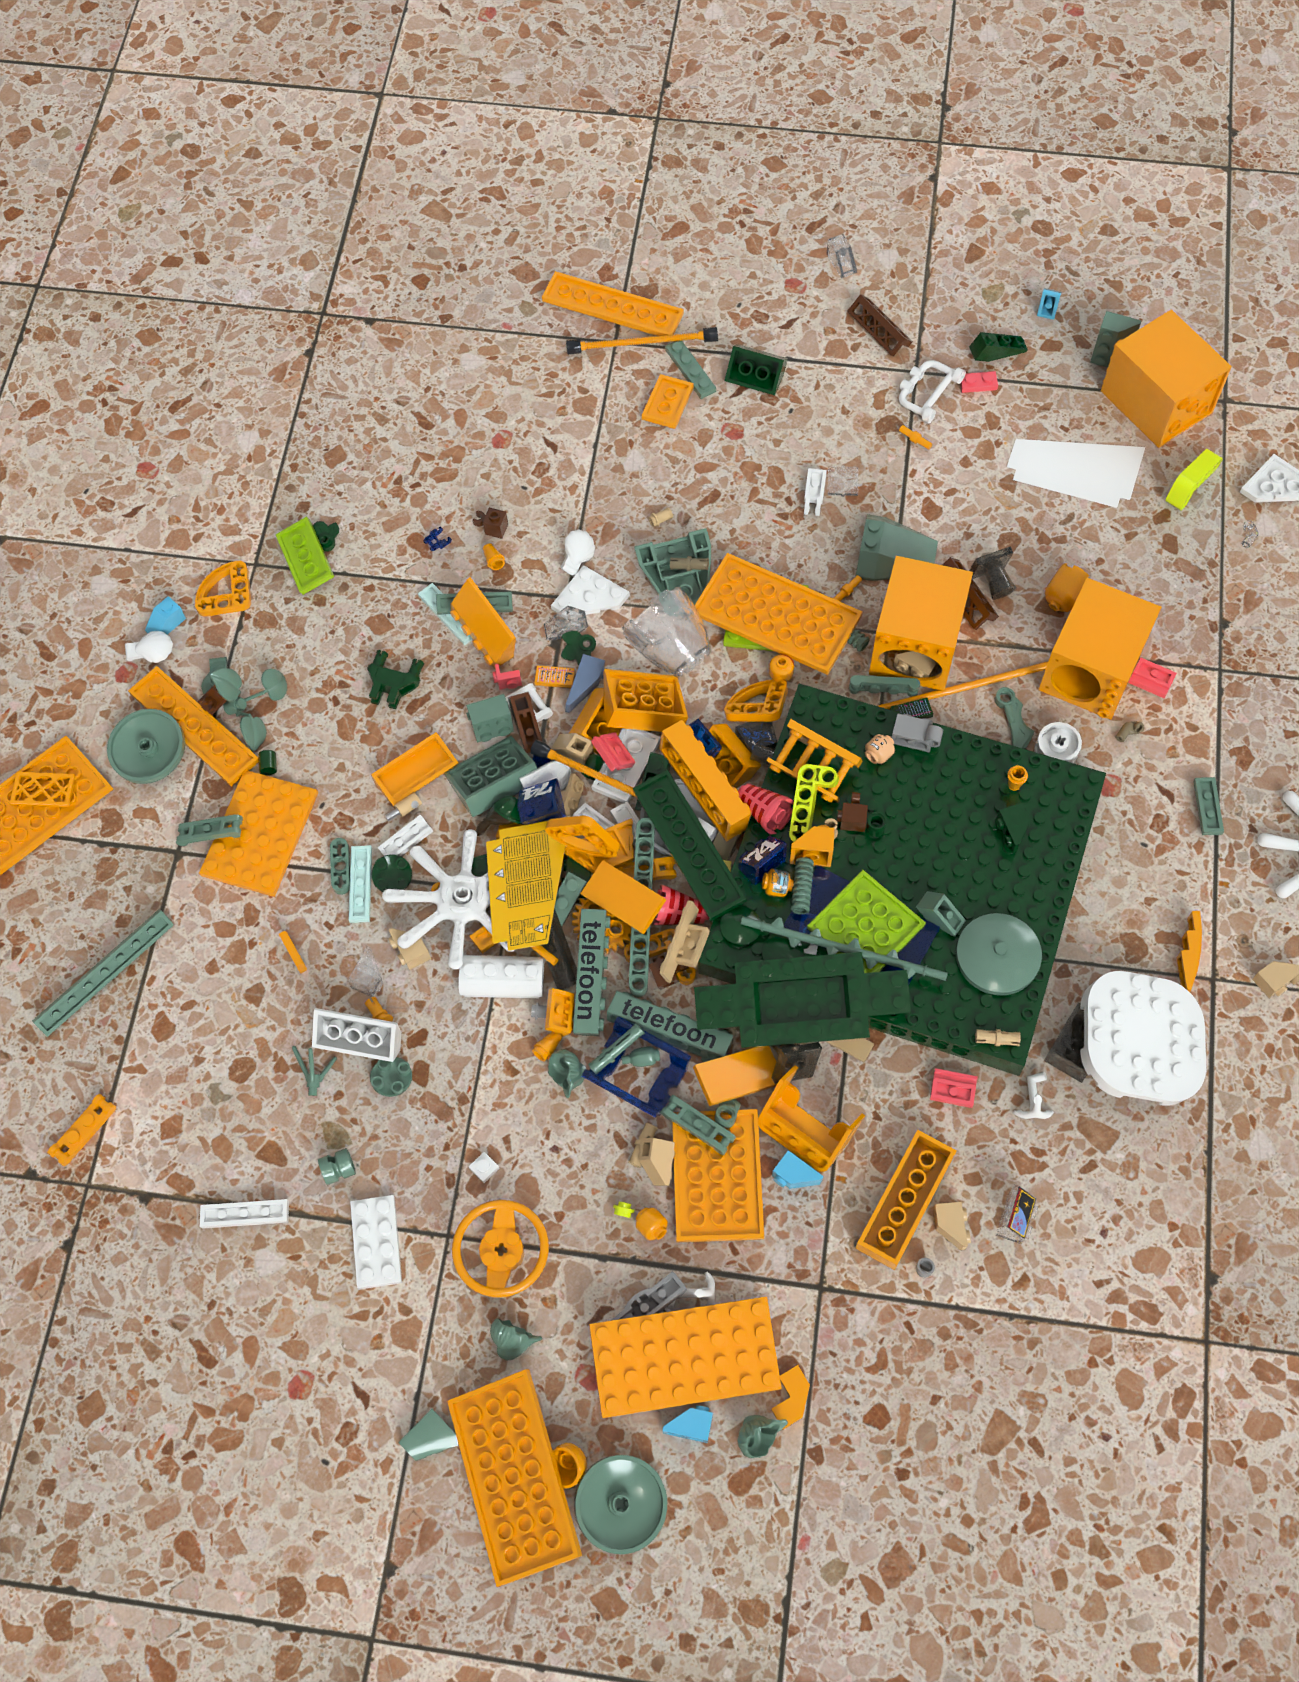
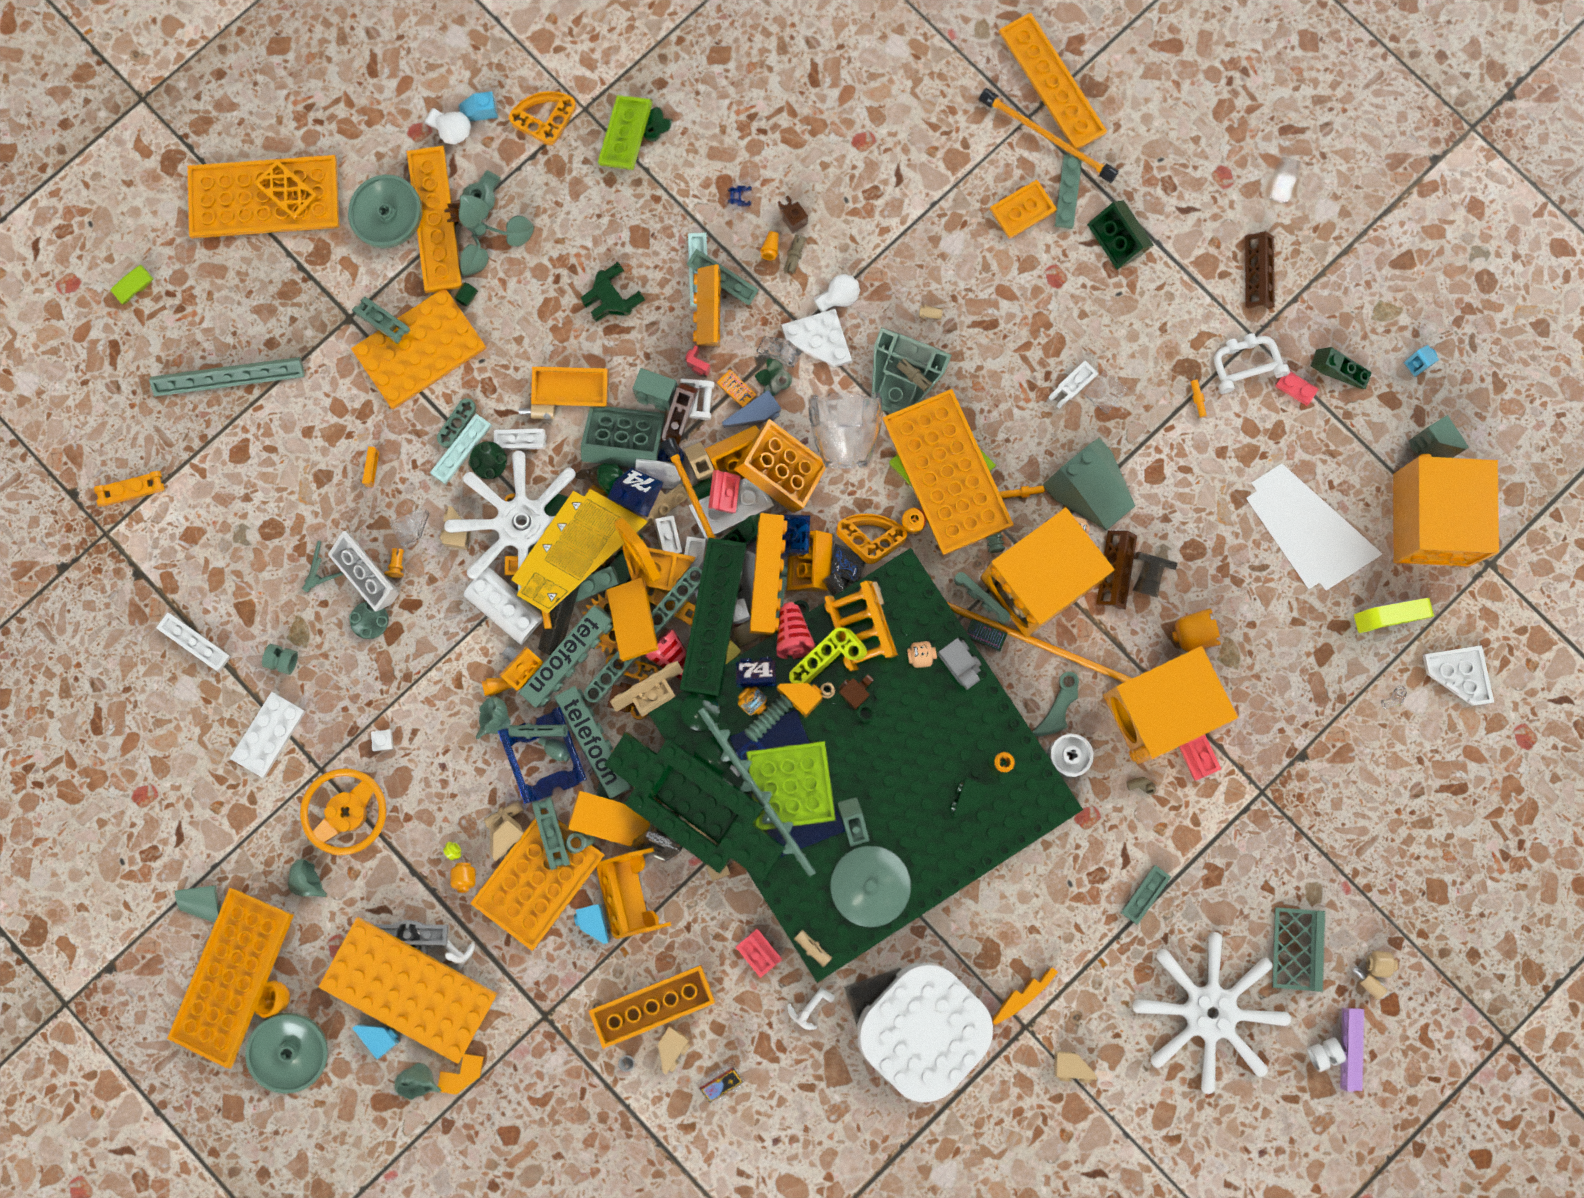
camera: 35 degrees right, 15 degrees up
(517, 549) = (794, 254): none -> dark tan pin

